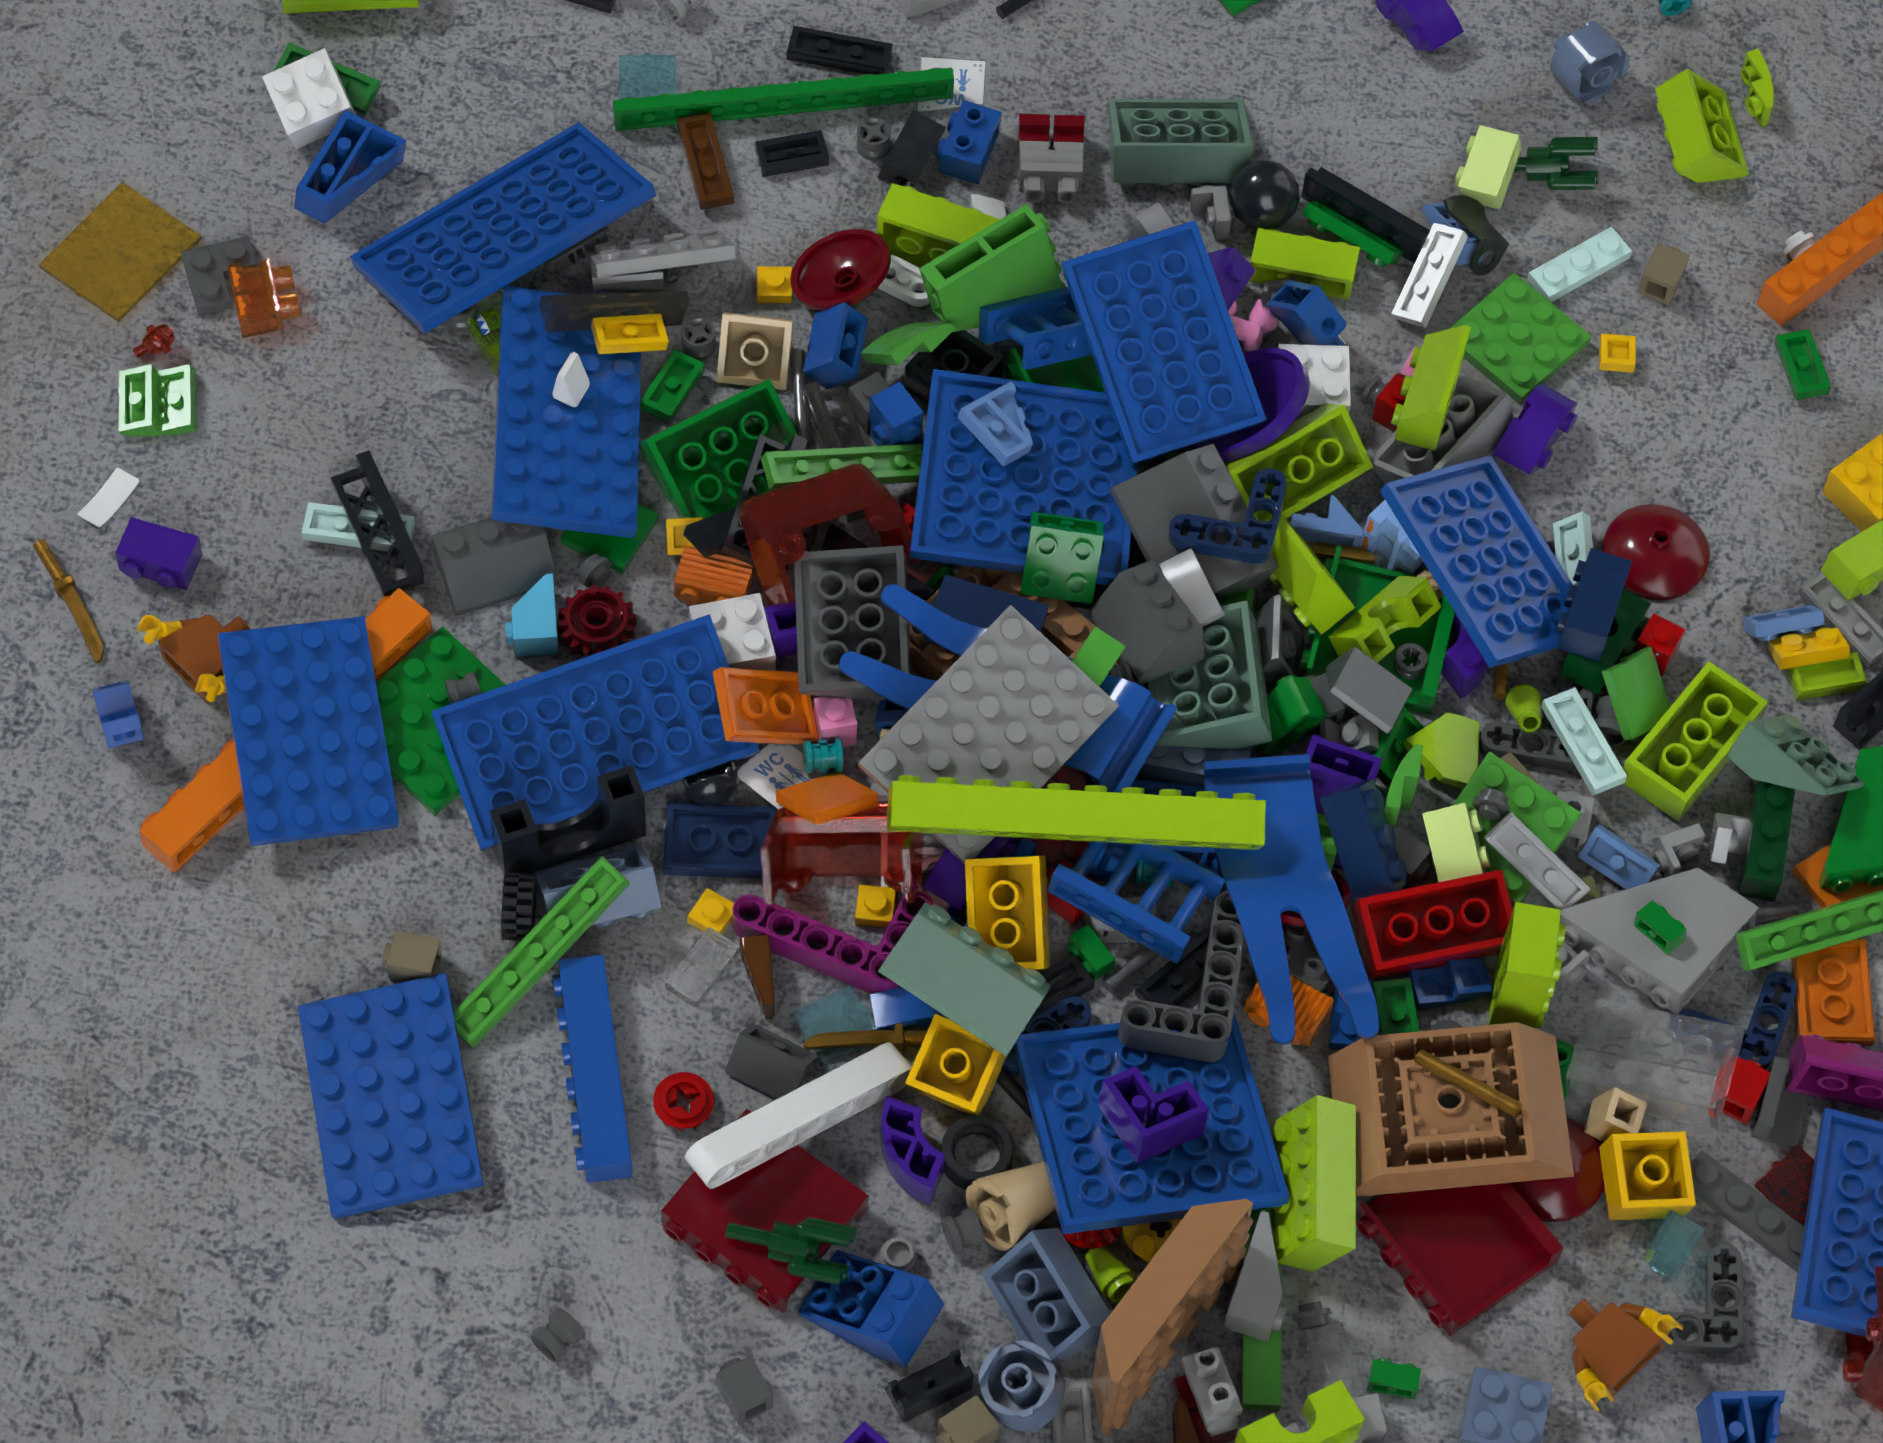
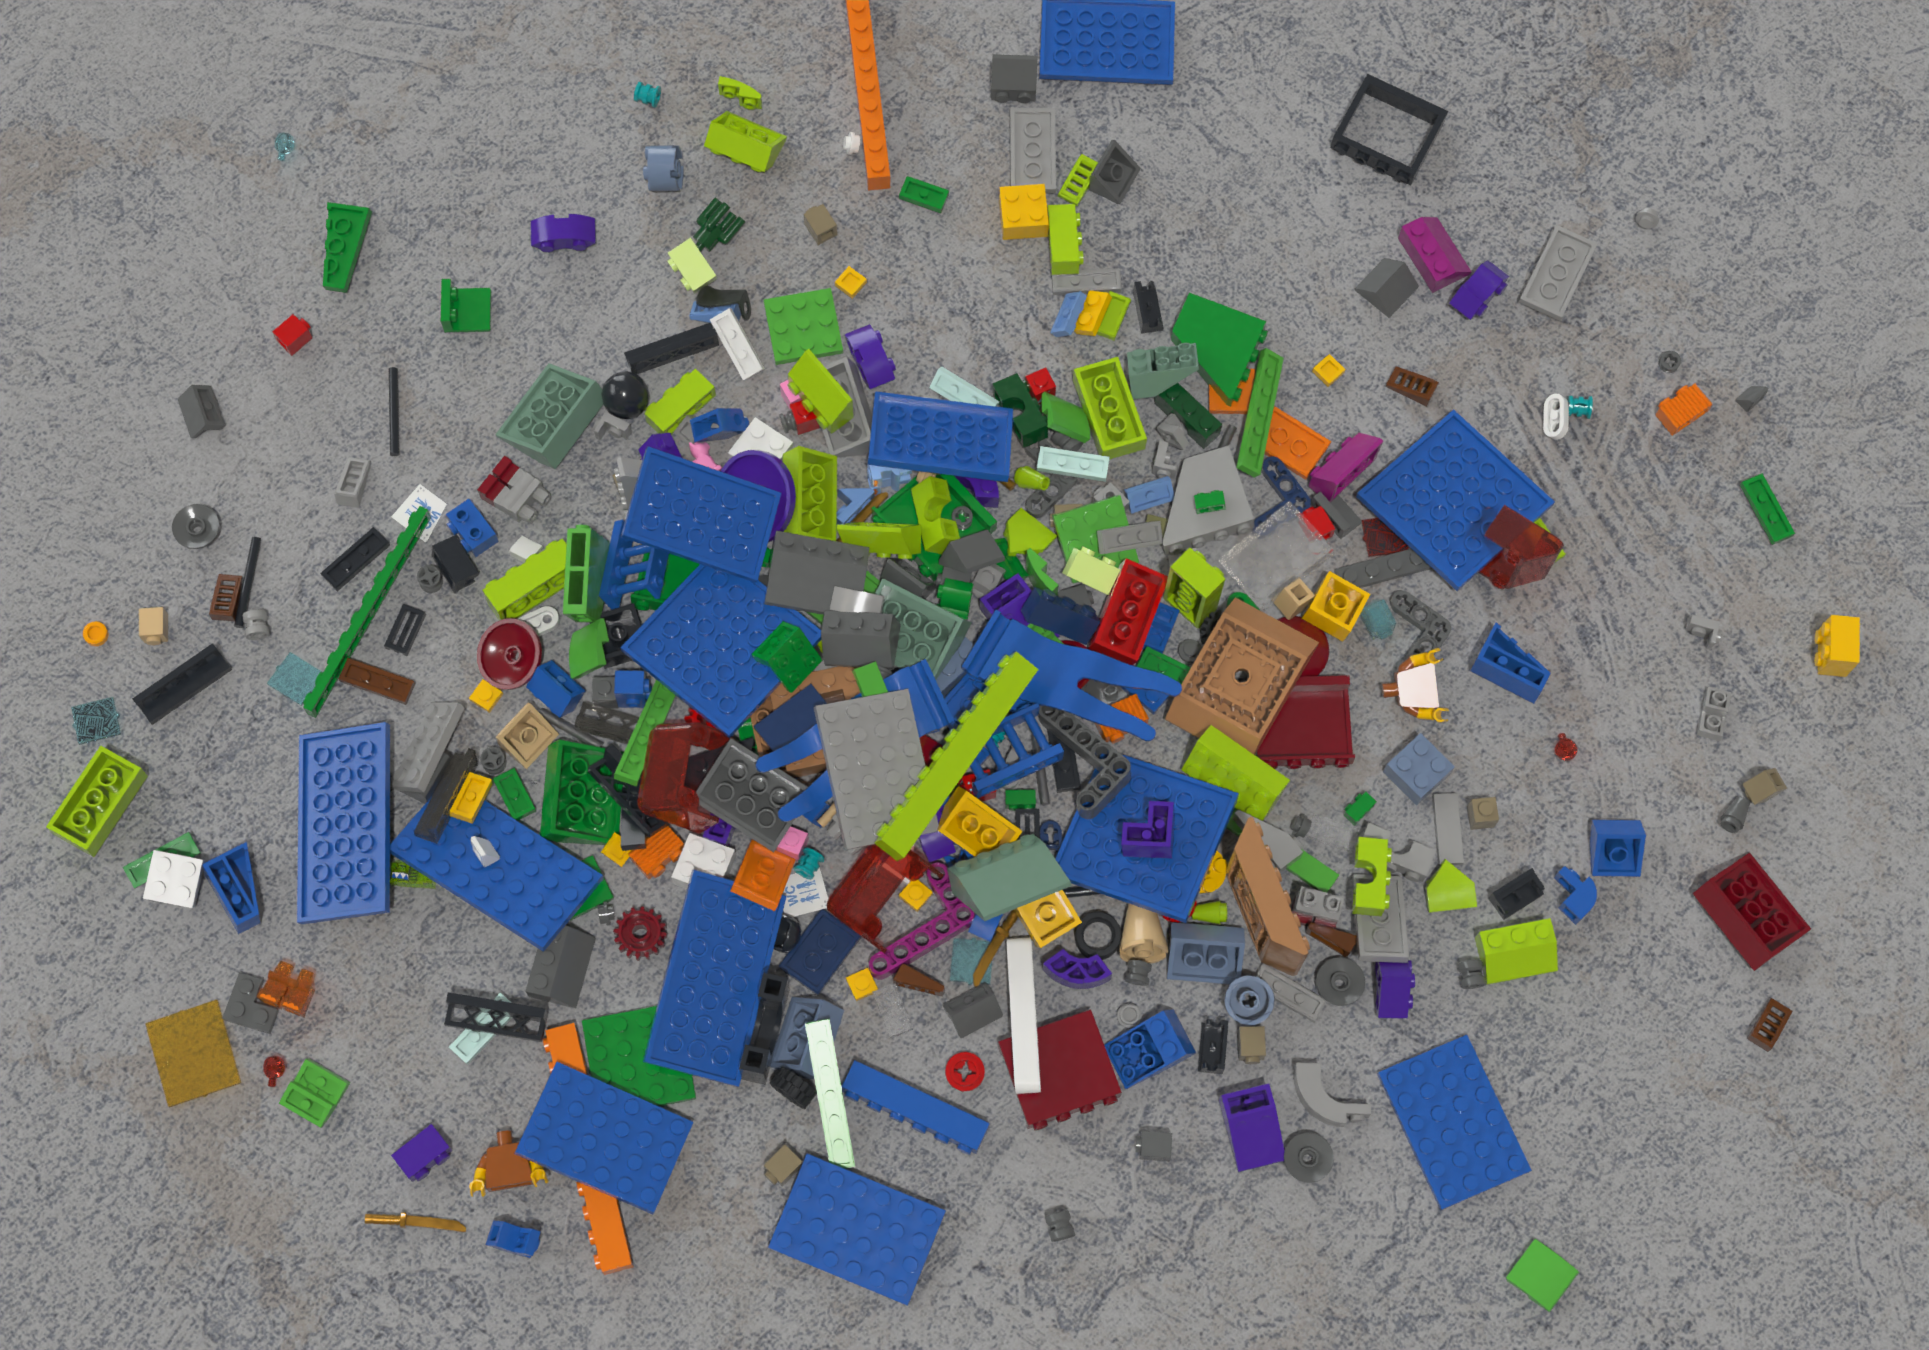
camera: 55 degrees left, 10 degrees up
(109, 498) = (359, 1159): white sticker -> none
(462, 688) = (639, 1035): dark grey wheel -> none
(534, 621) = (615, 966): medium azure slope -> none
(800, 1246) = (1102, 1064): dark green plant -> none
(827, 798) = (840, 878): orange tile -> none
(998, 424) = (684, 635): medium blue wing -> none
(1250, 531) = (845, 547): dark blue beam -> none
(1326, 219) = (679, 366): green plate -> none
(1468, 1083) = (1242, 660): pearl gold bar -> none
(1491, 804) = (1086, 536): dark grey plate -> none
(1579, 265) = (781, 262): light aqua plate -> none
(1592, 604) = (1004, 402): dark blue brick -> none
(1658, 568) = (980, 360): dark red dish -> none

